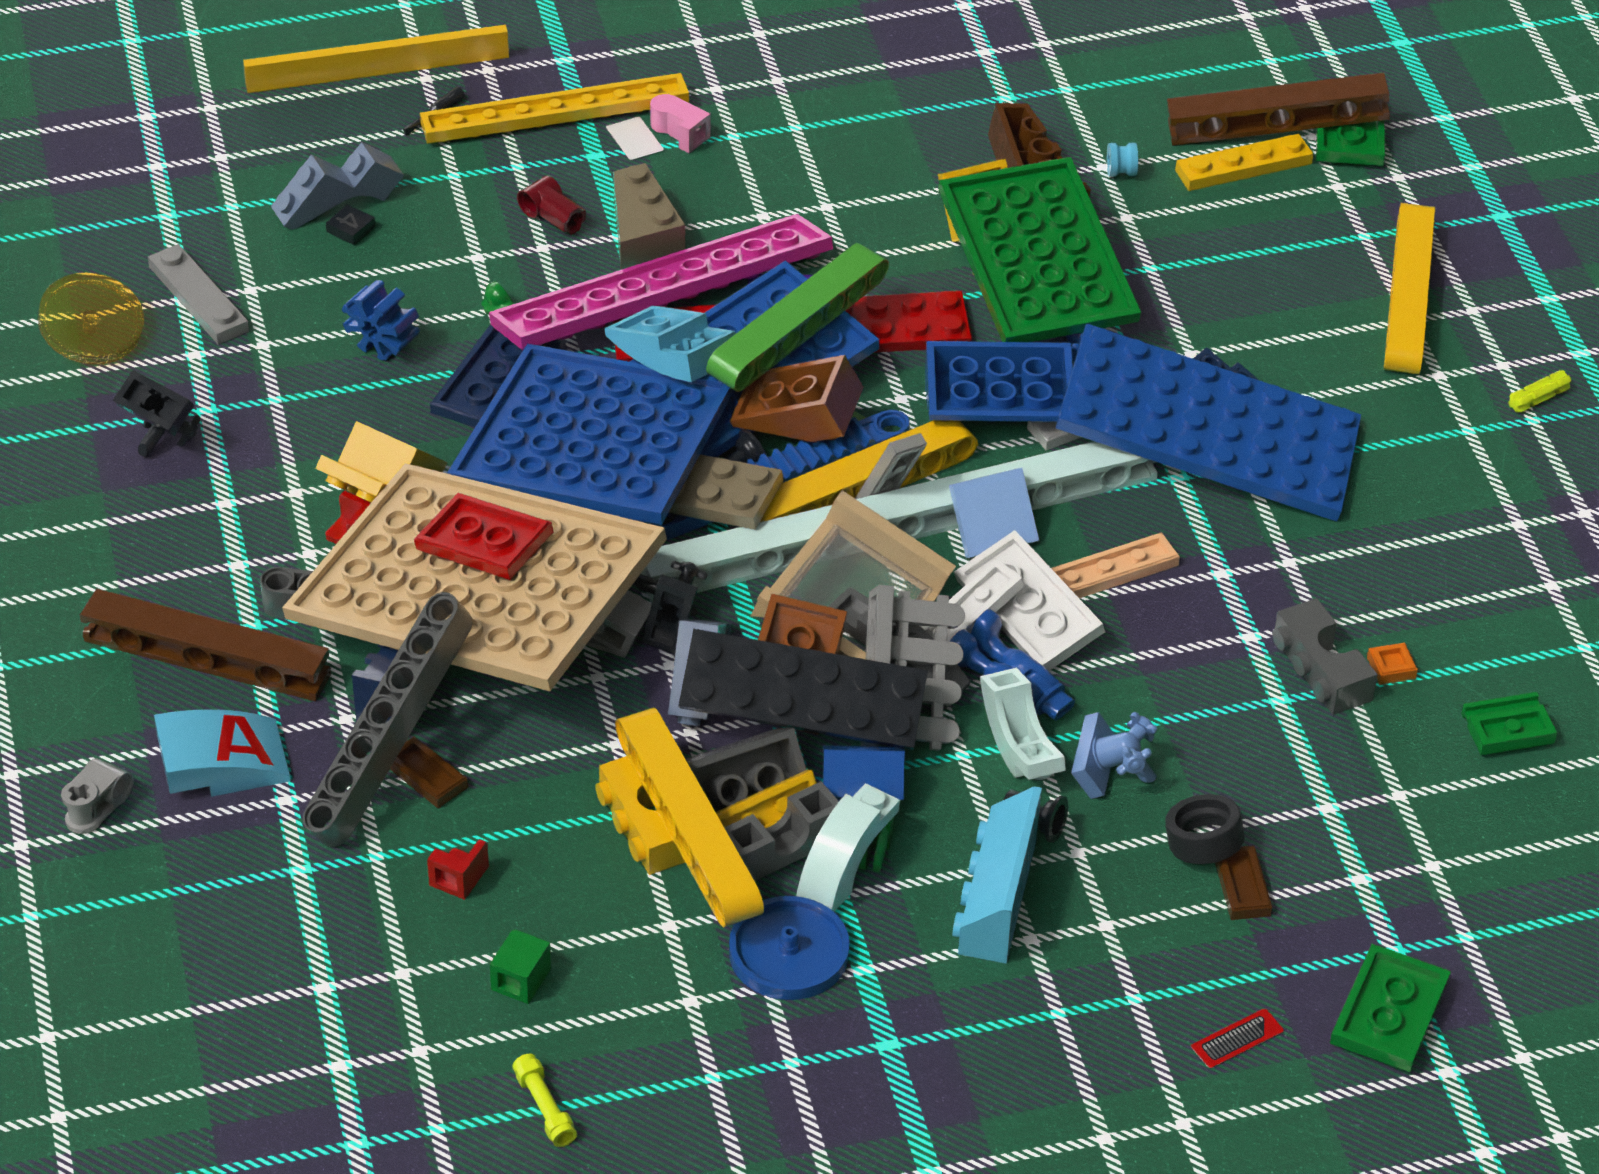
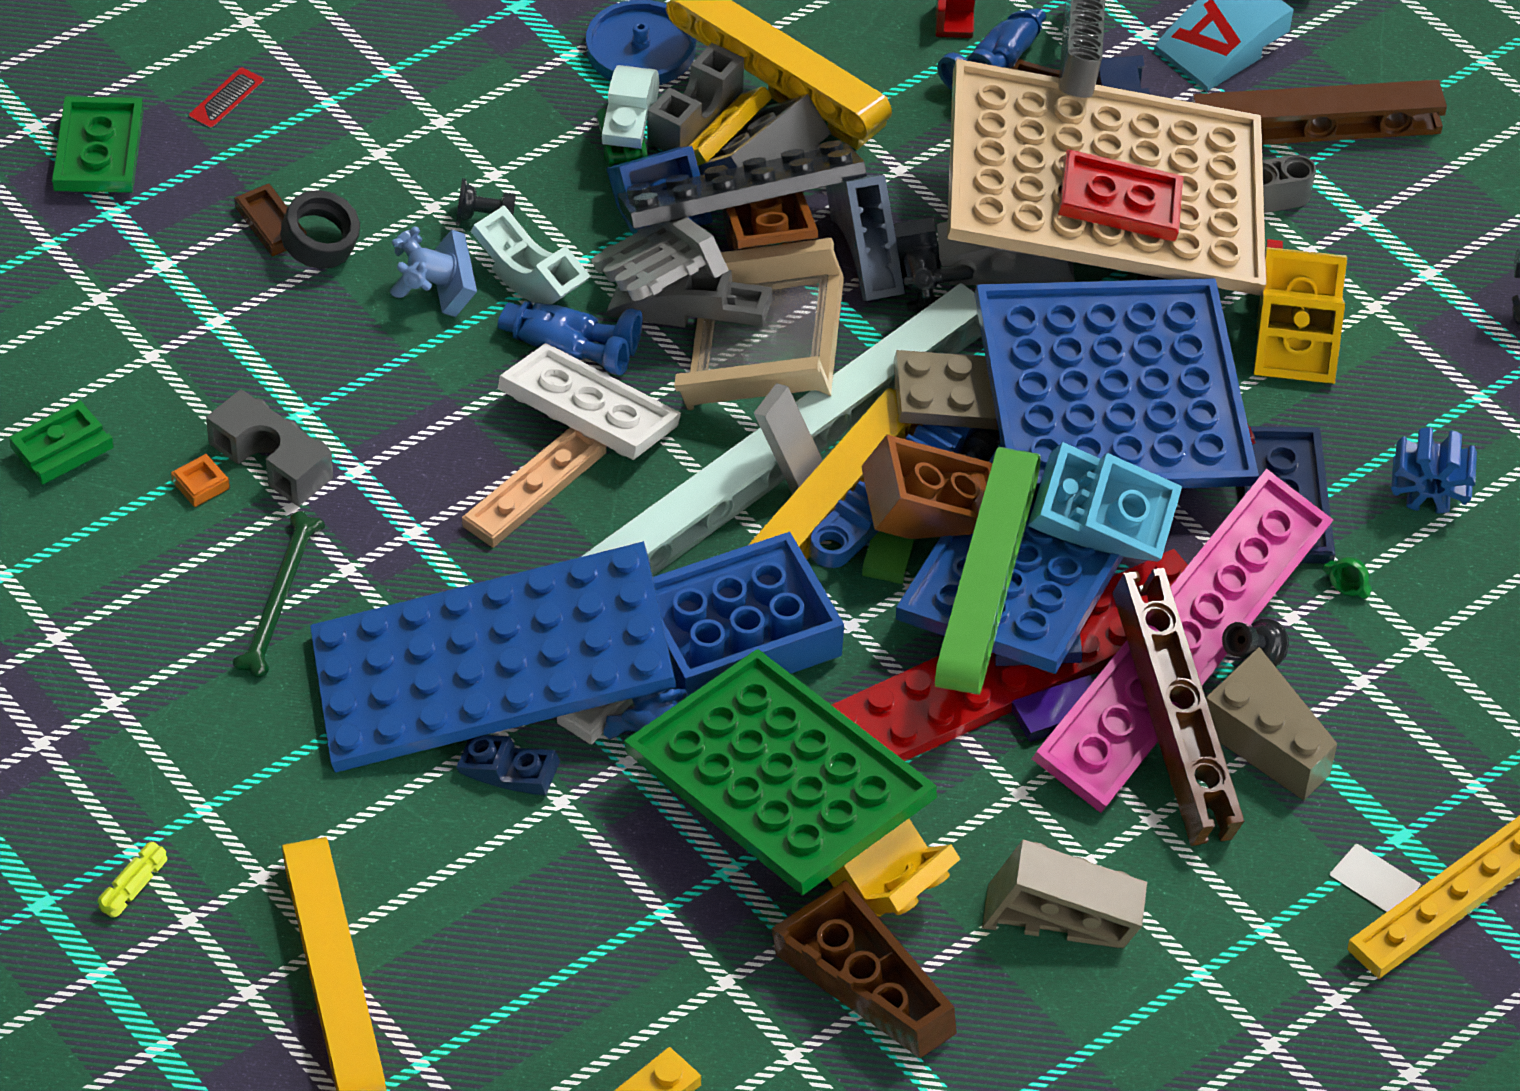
camera: 155 degrees right, 5 degrees up
(440, 804) = (1001, 45): none -> blue piece
(547, 200) = (1399, 721): dark red piece -> none
(629, 249) = (1243, 639): none -> black piece
(680, 121) = (1334, 901): bright pink leg -> none
(709, 226) = (1184, 734): none -> reddish brown piece
(871, 165) = (1066, 895): none -> dark tan wedge
(986, 591) = (641, 365): white plate -> none
(992, 509) = (671, 474): light blue tile -> none
(998, 877) = (486, 124): medium azure slope -> none
(1122, 159) = (767, 1043): medium azure wheel -> none
(1393, 512) = (255, 657): none -> dark green piece

